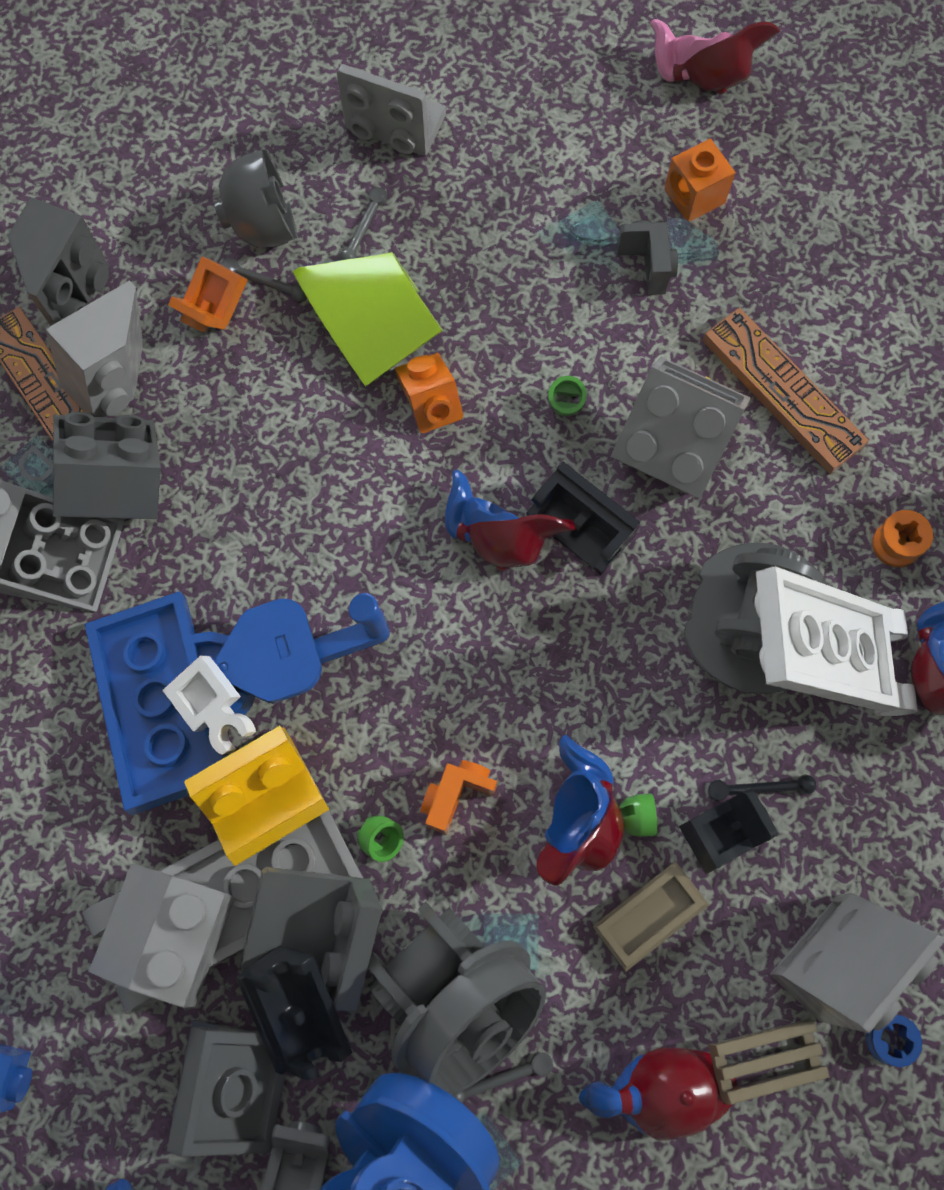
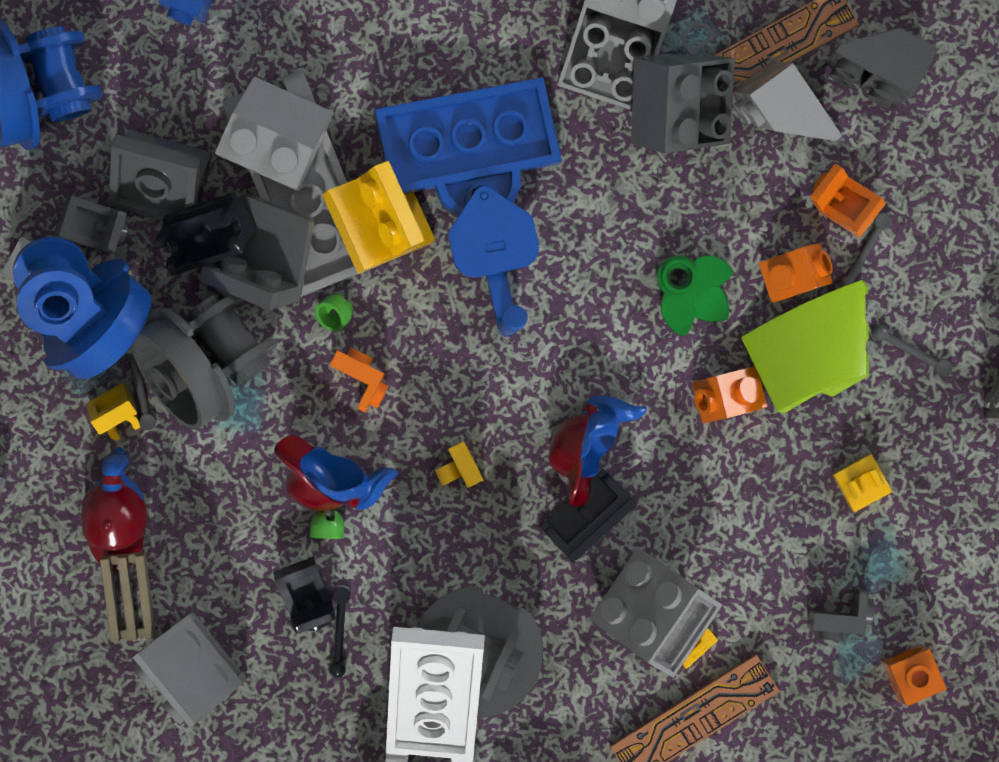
camera: 95 degrees right, 15 degrees up
(204, 701) = (455, 180): white plate -> none
(254, 202) = (934, 251): dark grey cylinder -> none
(291, 339) = (796, 272): none -> orange bracket
(323, 435) = (699, 295): none -> green plate
(506, 255) = (862, 483): none -> yellow tile
(533, 1113) = (112, 409): none -> yellow tile
(546, 662) = (462, 466): none -> yellow tile
(570, 387) = (698, 517): bright green hinge -> none
(650, 916) = (248, 523): dark tan tile -> none
(906, 1031) = (136, 711): blue bush -> none

